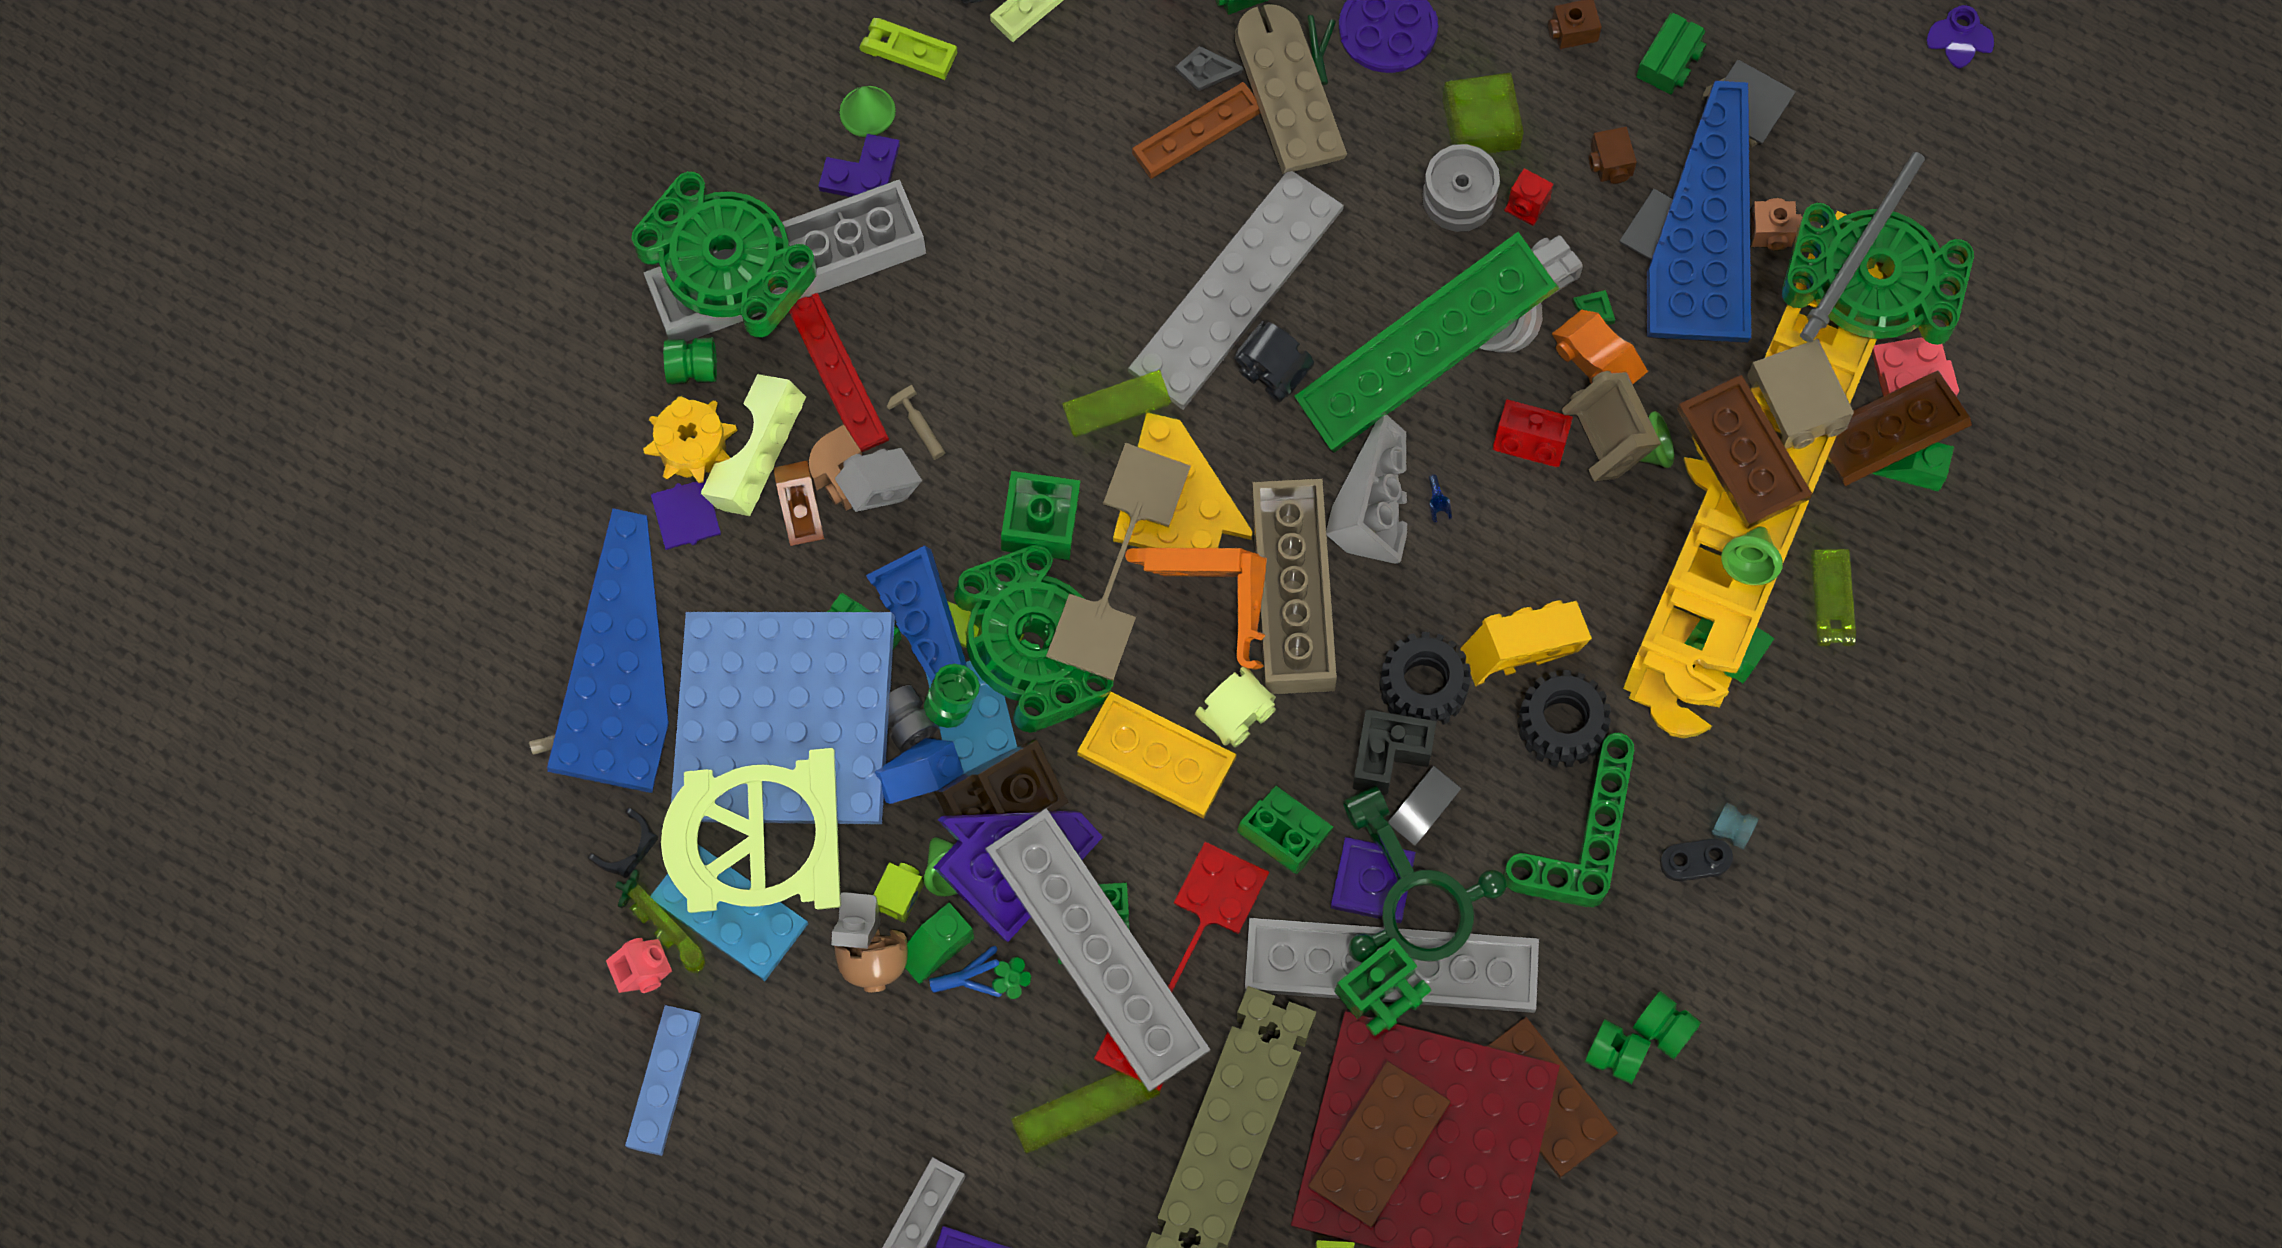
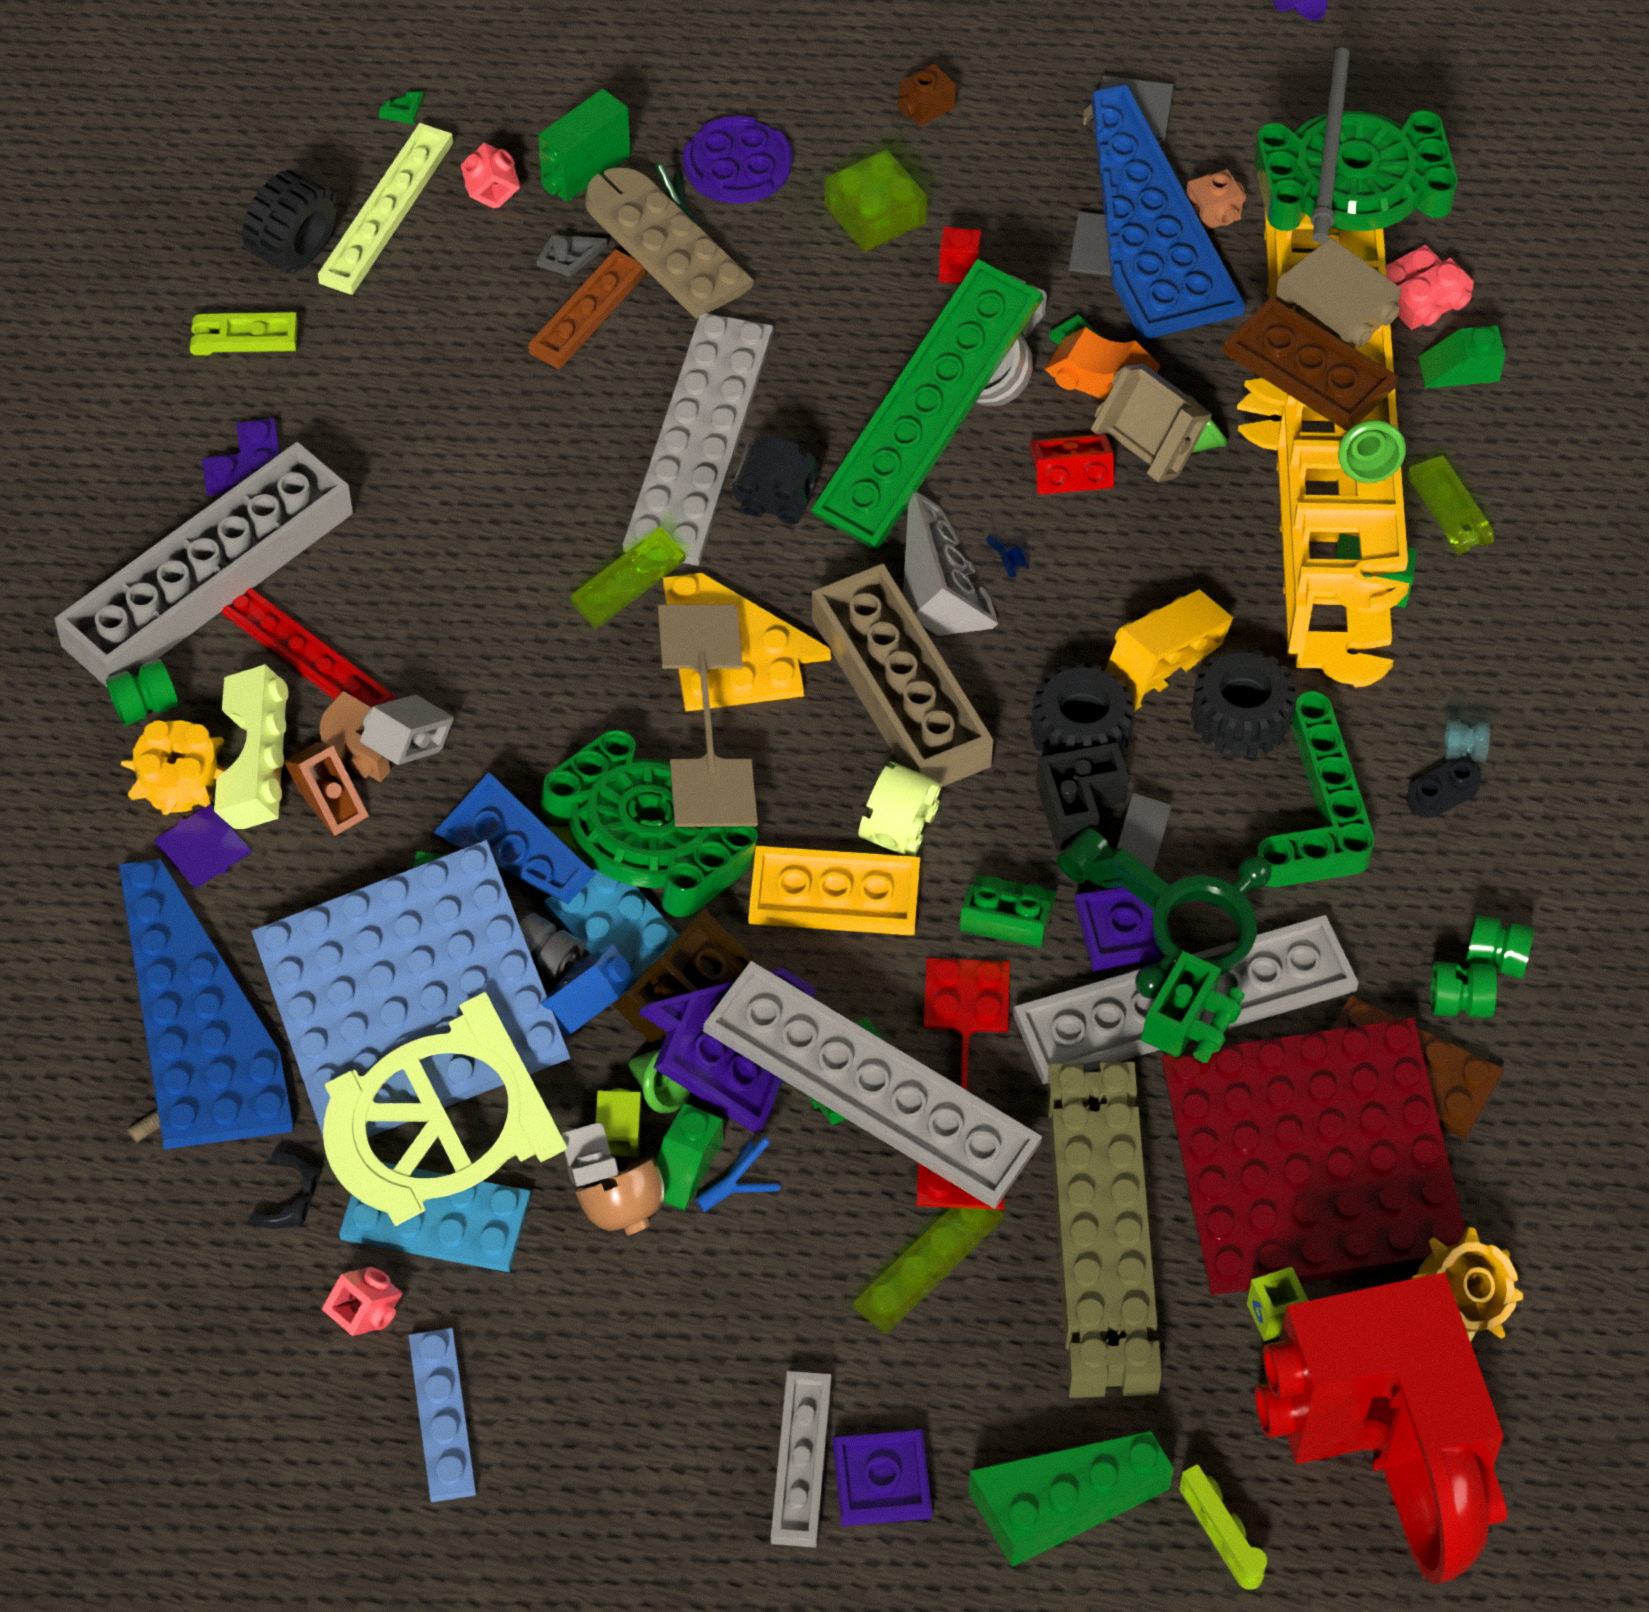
camera: 25 degrees left, 15 degrees down
(626, 888) = (312, 1232): dark green plant -> none
(668, 931) = (344, 1243): clear neon green plate -> none
(732, 284) = (100, 557): green piece -> none
(867, 111) = (224, 403): bright green hat -> none
(917, 421) = (419, 670): dark tan piece -> none
(951, 695) = (590, 899): green wheel -> none
(1011, 977) = (784, 1162): green plant -> none
(1040, 513) = (596, 699): green brick -> none
(1216, 562) = (806, 680): orange hinge -> none
(1379, 1144) = (1266, 1166): reddish brown plate -> none
(1461, 187) = (887, 268): light grey wheel -> none
(1612, 155) = (1023, 194): reddish brown brick -> none
(1671, 54) = (1035, 90): green brick -> none
(1897, 427) = (1439, 321): reddish brown plate -> none

